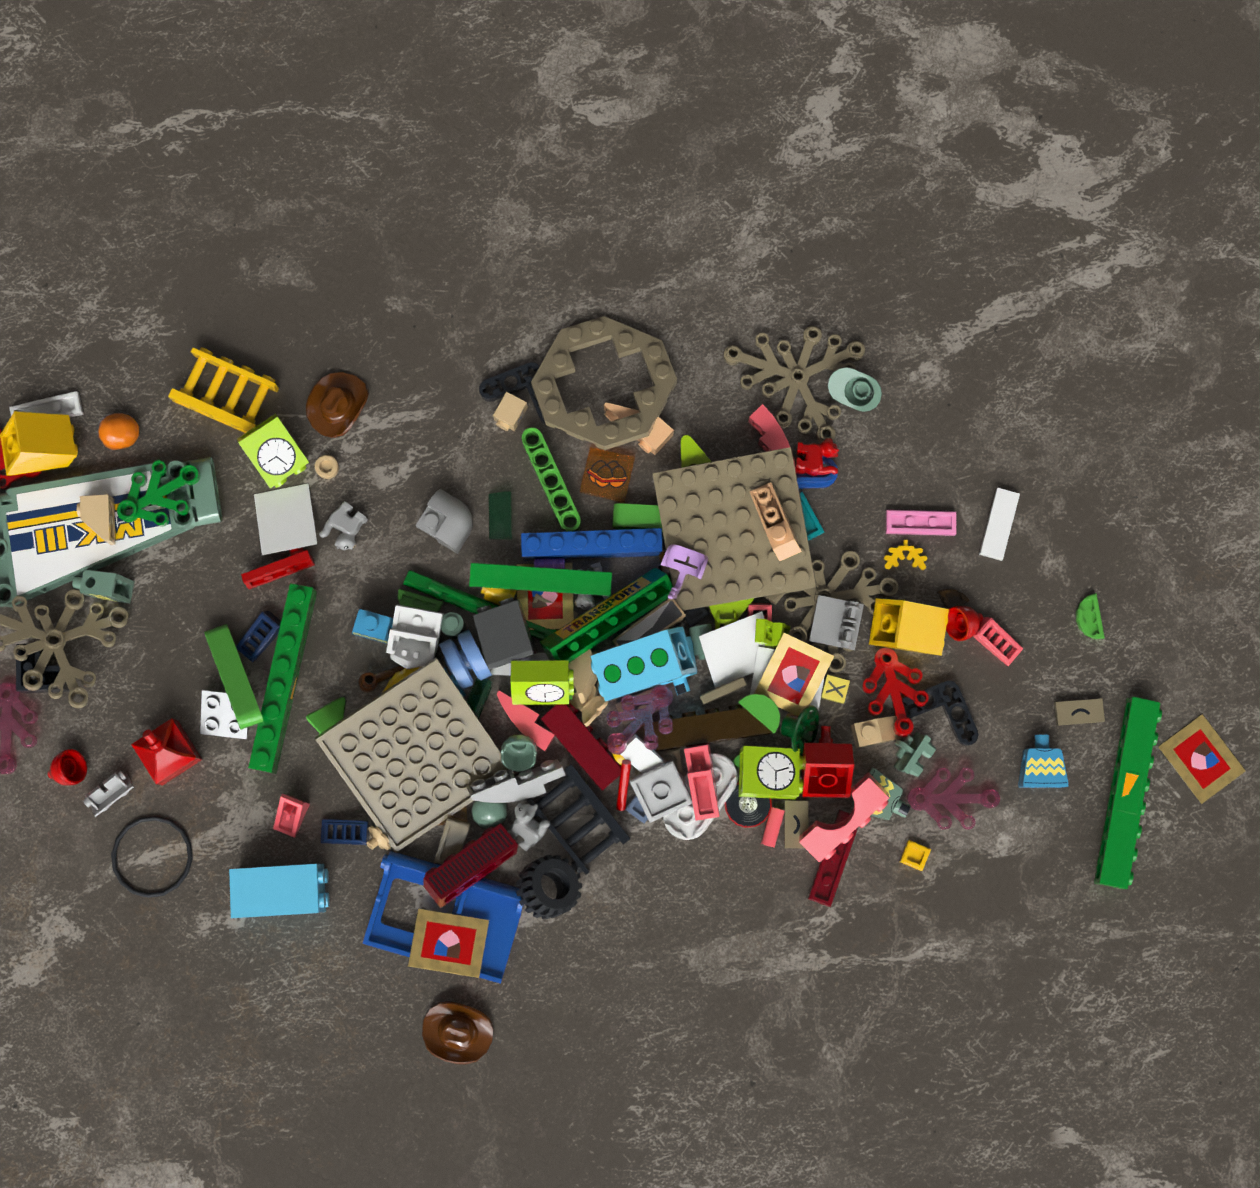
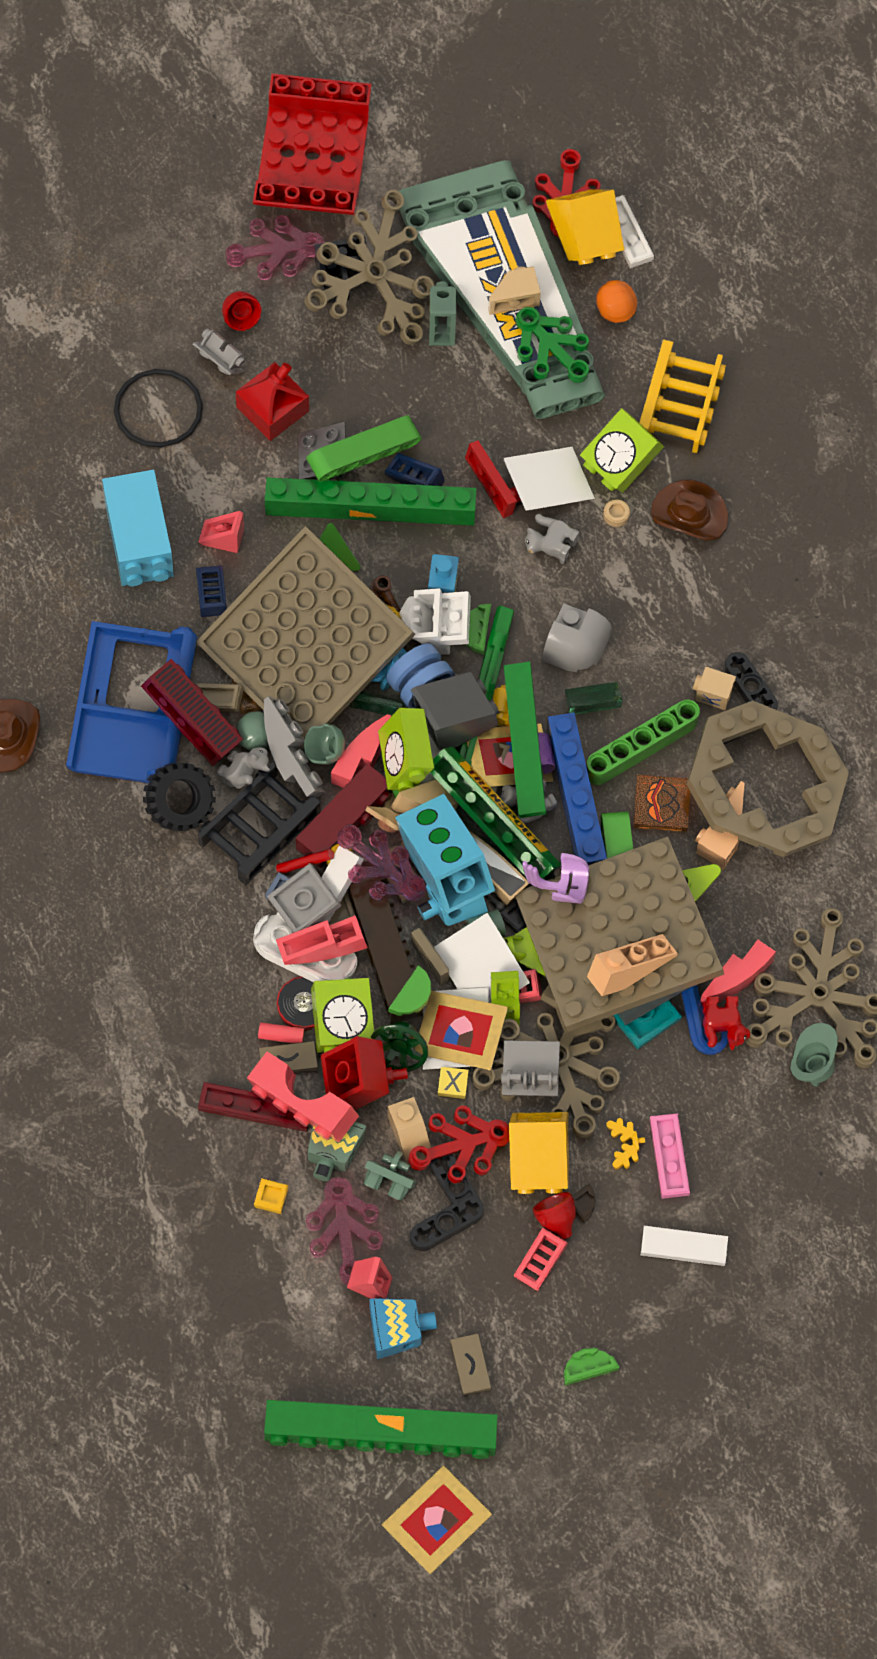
camera: 80 degrees right, 15 degrees down
(377, 839) = (207, 620): tan plant -> none
(448, 943) = (103, 707): sticker -> none
(452, 625) = (459, 658): sand green brick -> none
(1004, 784) = (370, 1278): none -> coral slope

